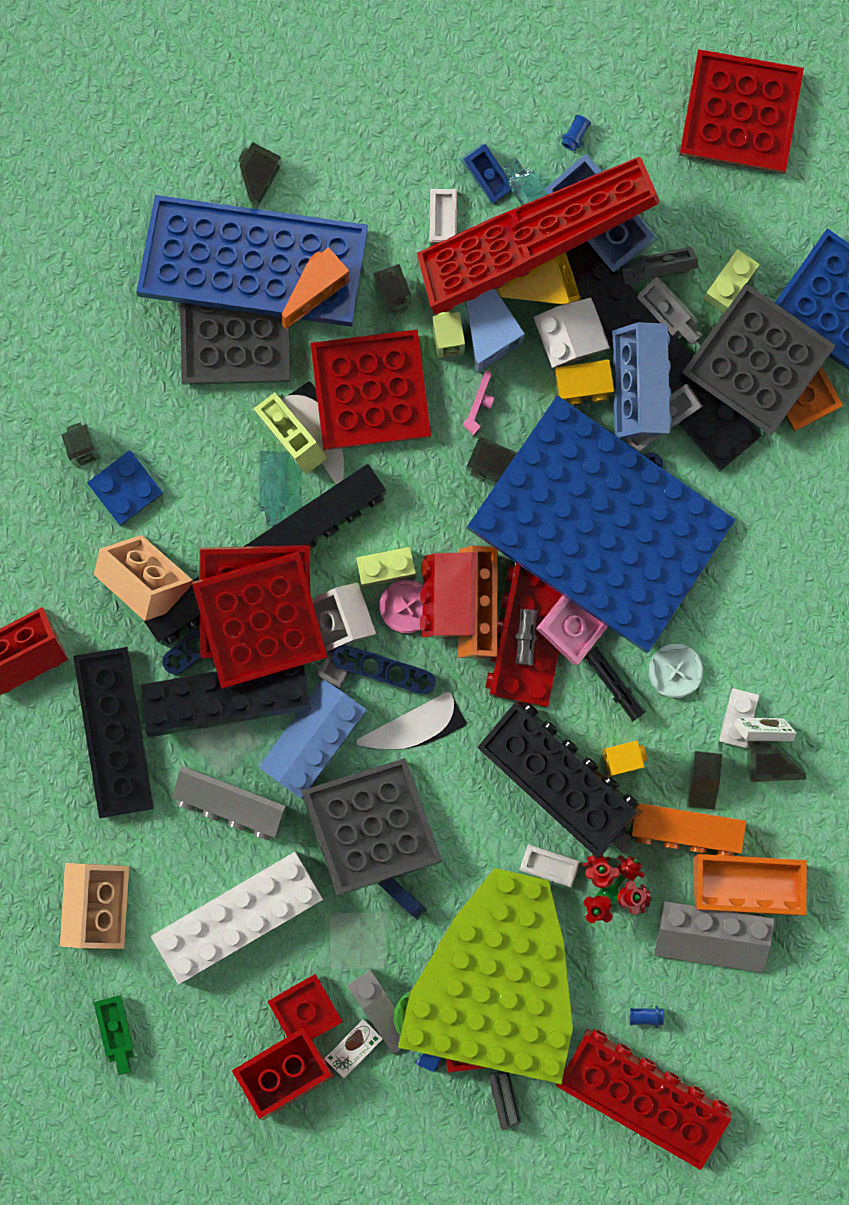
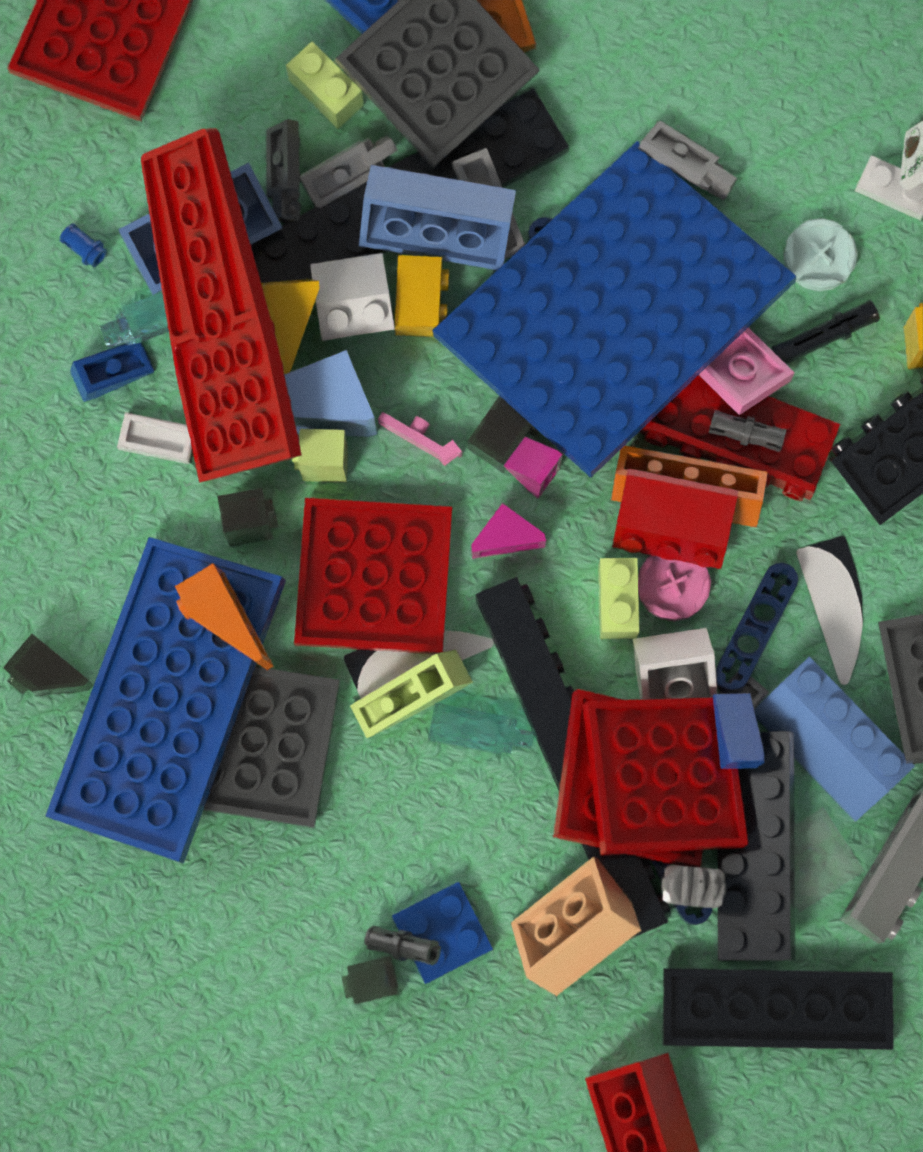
camera: 80 degrees left, 5 degrees down
(109, 460) = (402, 945): none -> dark grey pin
(185, 654) = (693, 886): none -> light grey gear
(302, 666) = (737, 732): none -> blue slope
(419, 478) = (507, 534): none -> dark pink slope
(470, 487) = (534, 465): none -> dark pink slope
(728, 558) = (687, 159): none -> light grey hinge

